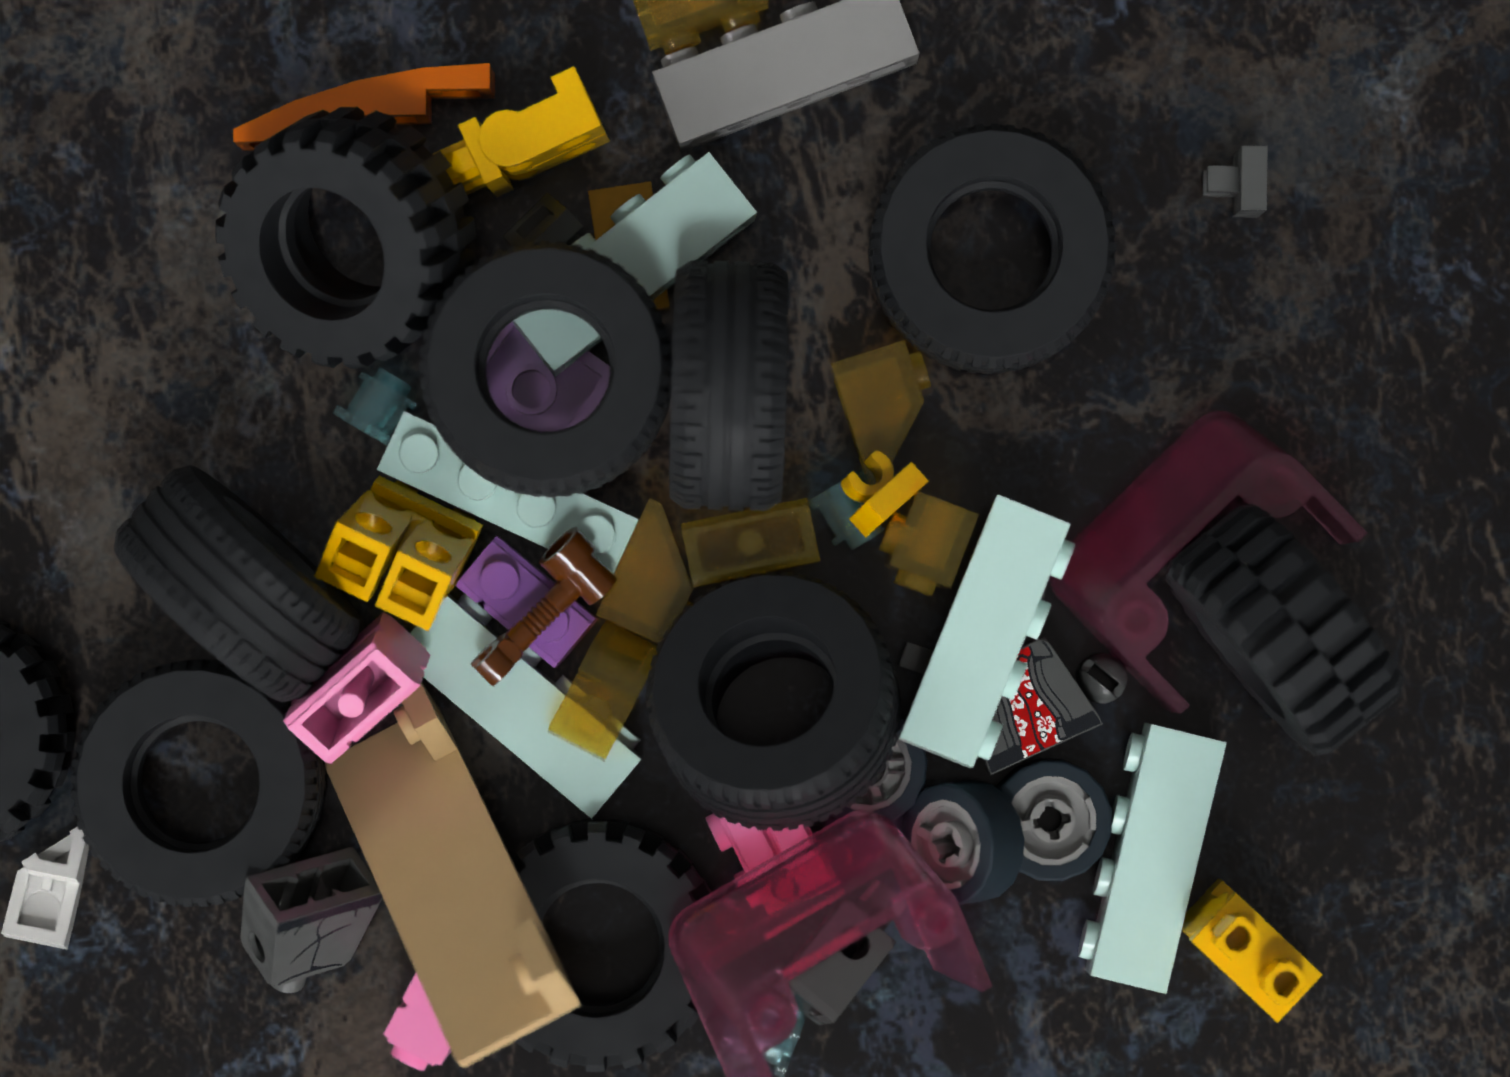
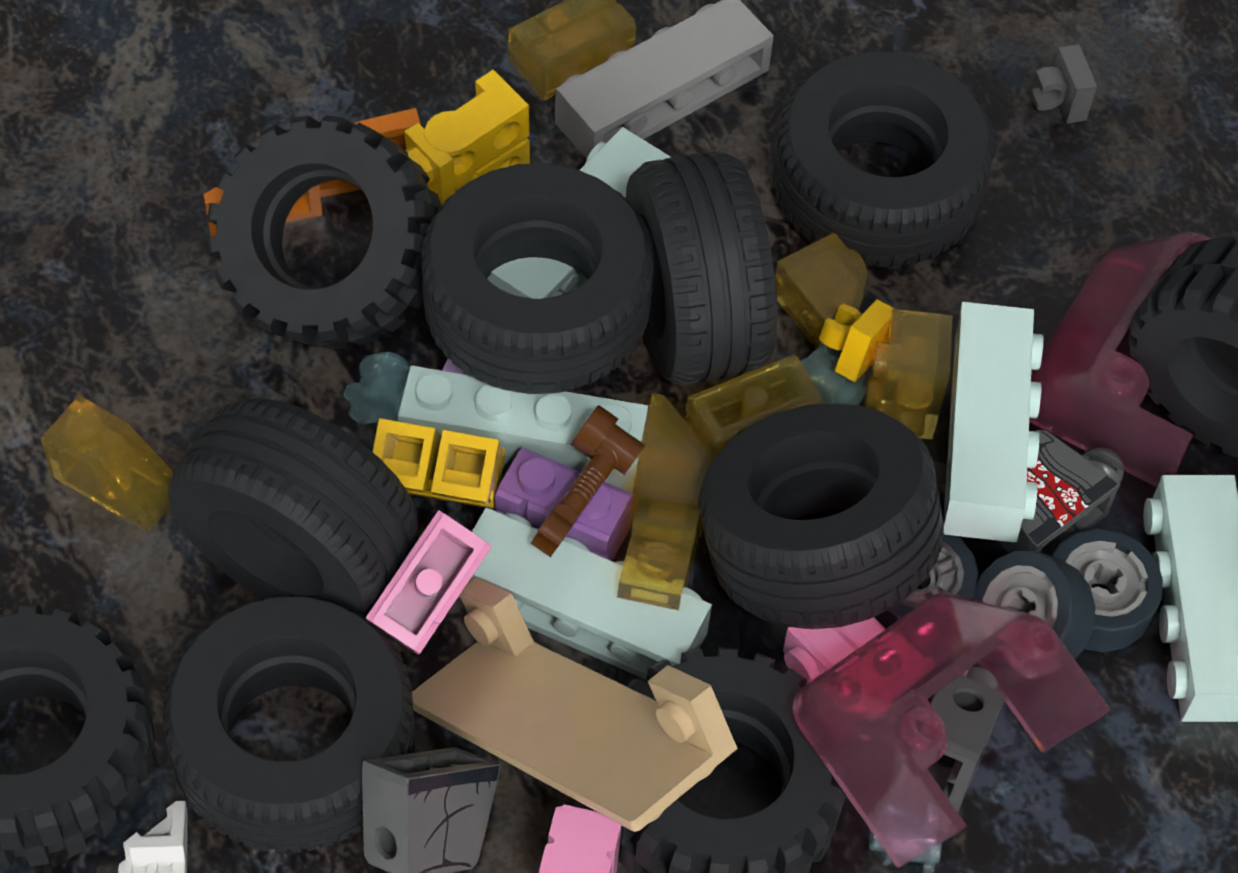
camera: 20 degrees left, 30 degrees down
(82, 435) = (108, 463): none -> clear yellow slope

